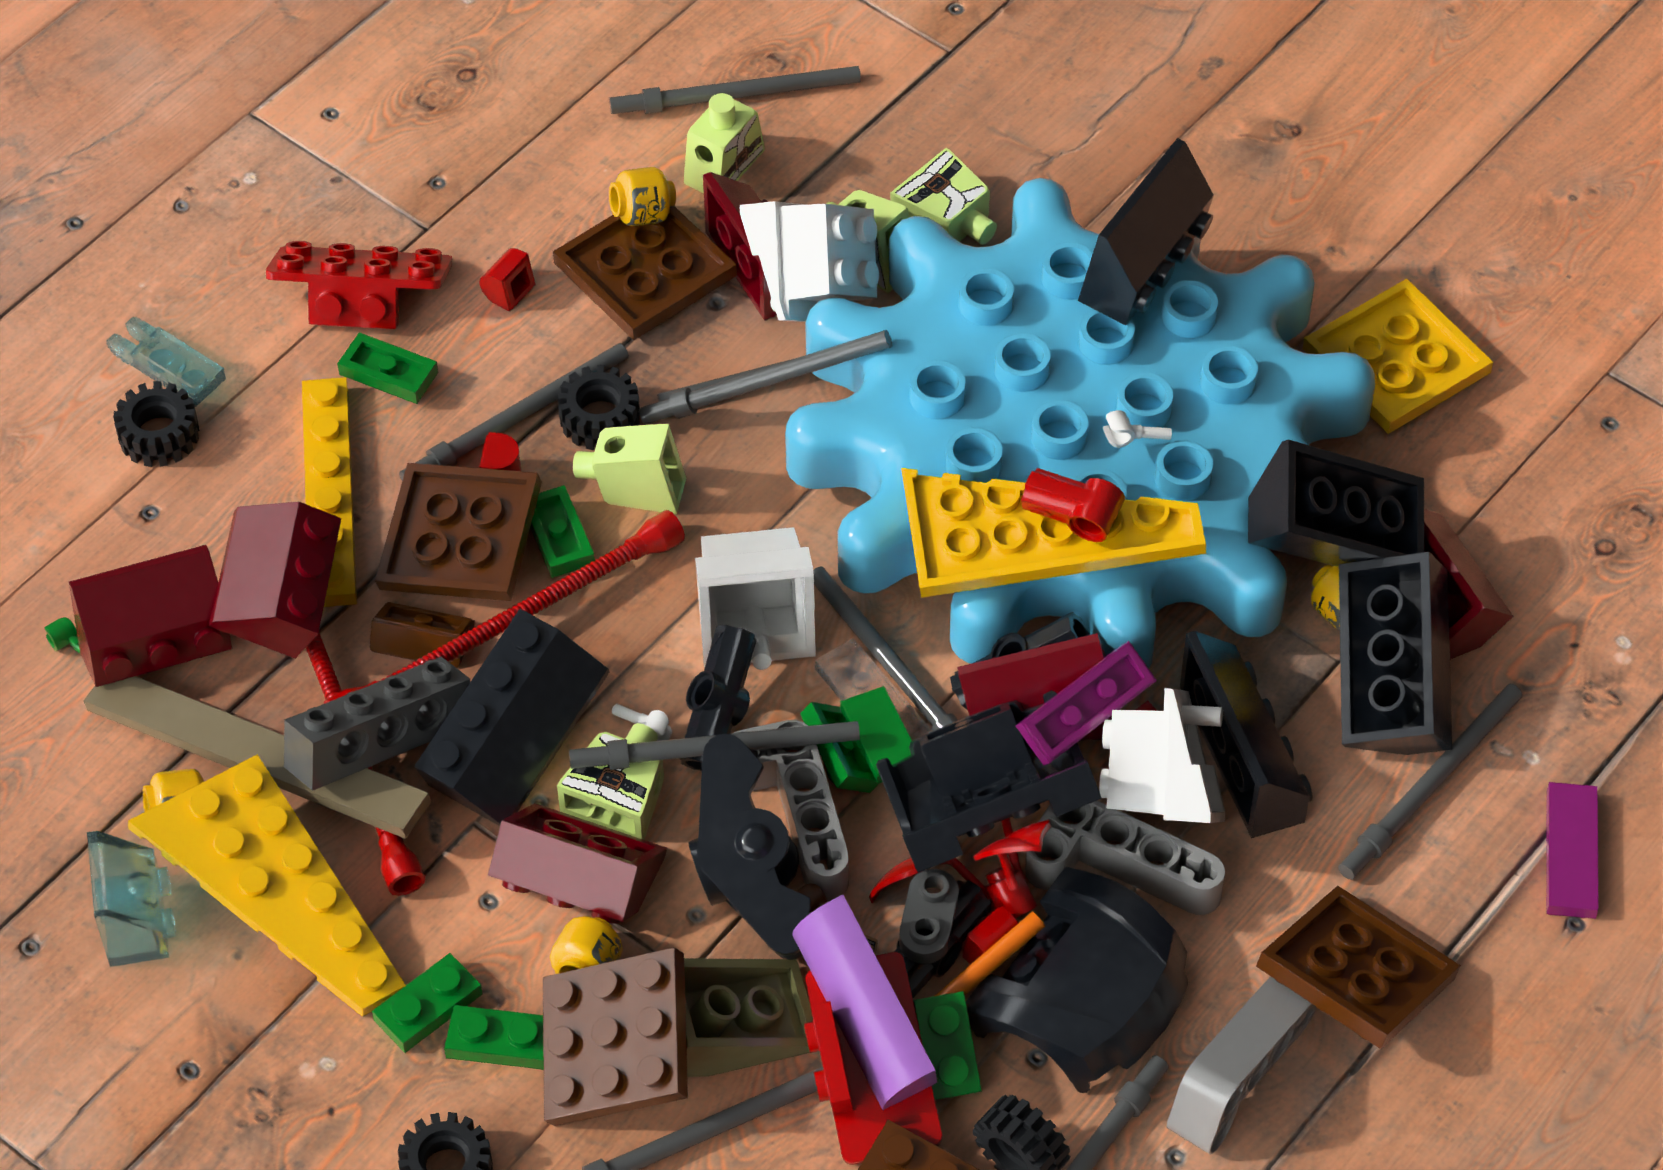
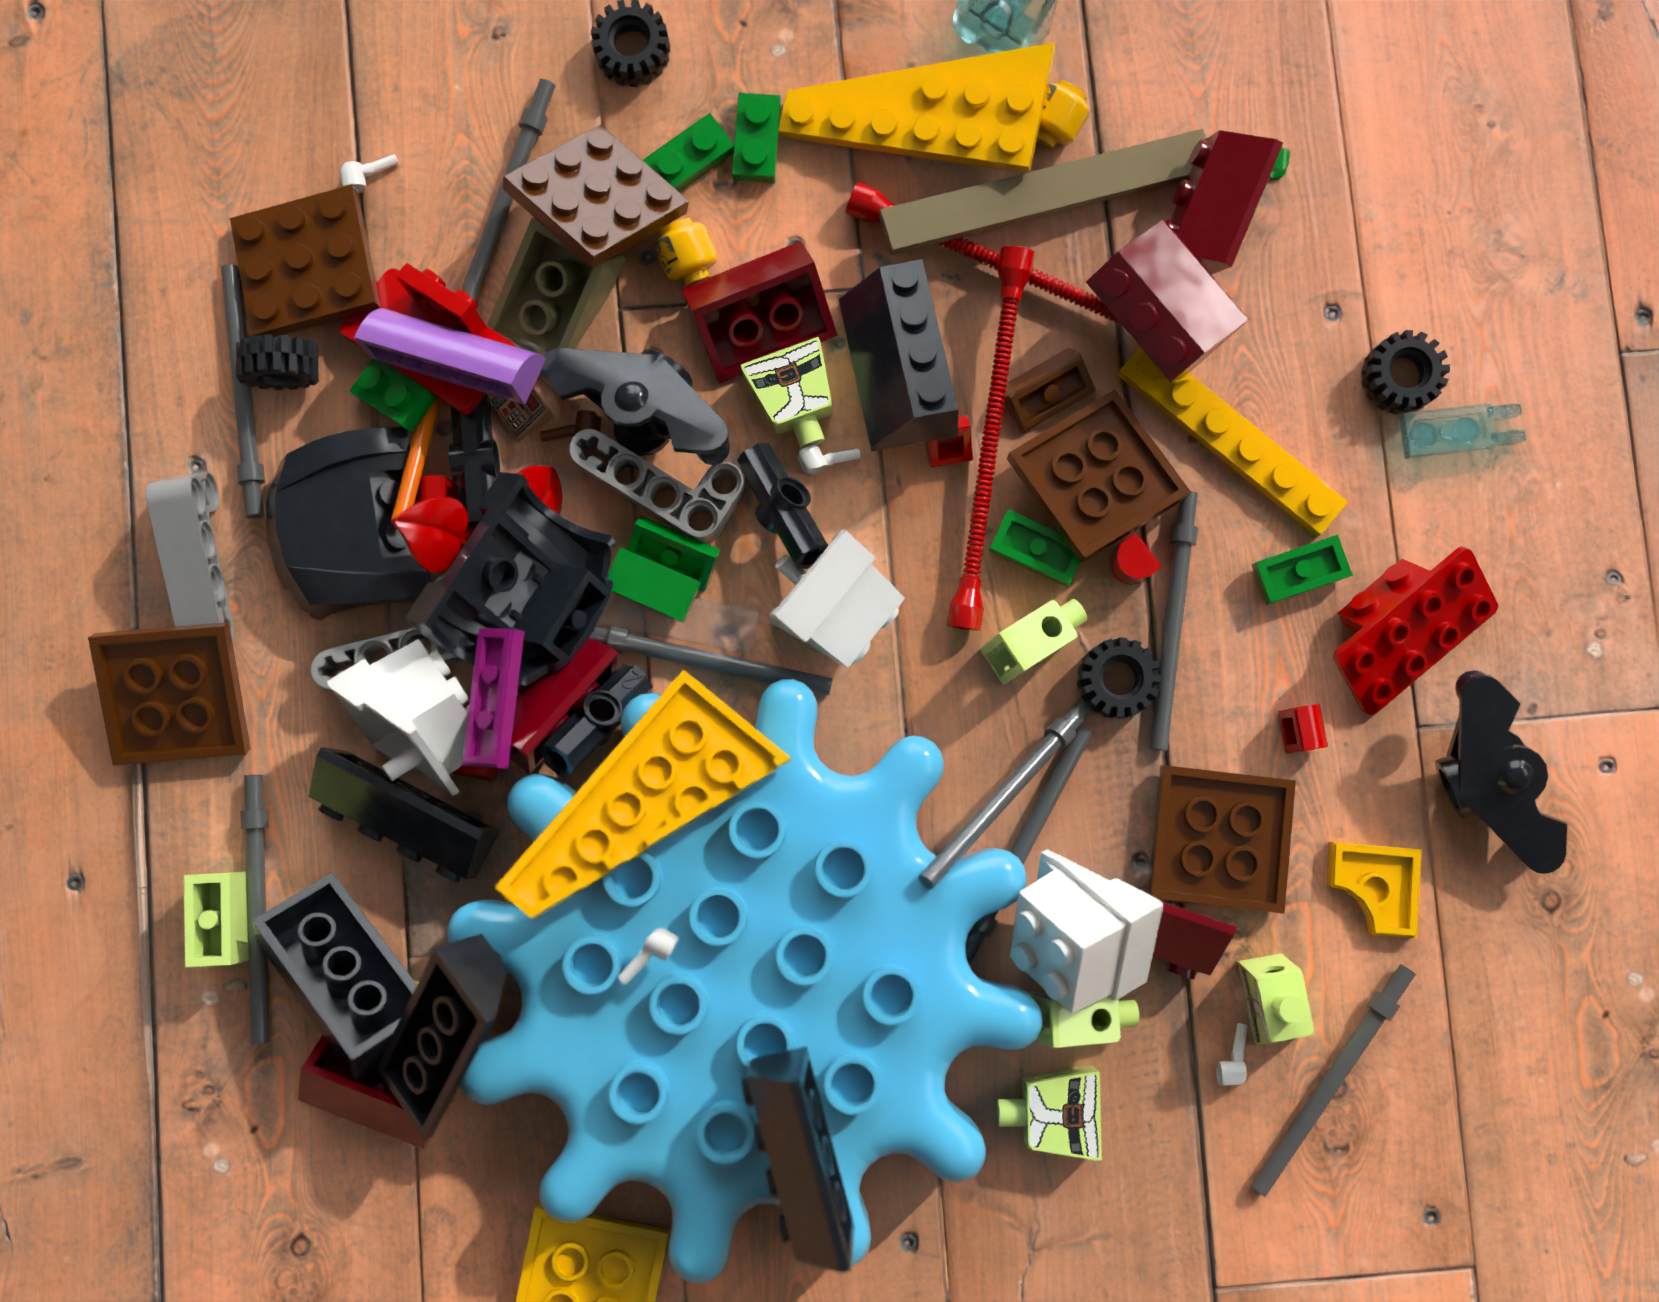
camera: 135 degrees right, 30 degrees up
(371, 723) = (979, 262): dark grey brick -> none
(423, 141) = (1498, 776): none -> black piece
(567, 164) = (1382, 882): none -> yellow tile
(619, 753) = (794, 390): dark grey bar -> none
(642, 196) = (1276, 883): yellow head -> none
(796, 140) = (1234, 1071): none -> white hand
(928, 912) = (474, 461): dark grey plate -> none
(1084, 507) = (605, 829): red piece -> none
(1467, 778) = (216, 919): none -> yellowish green brick
(1572, 850) = (116, 938): magenta tile -> none

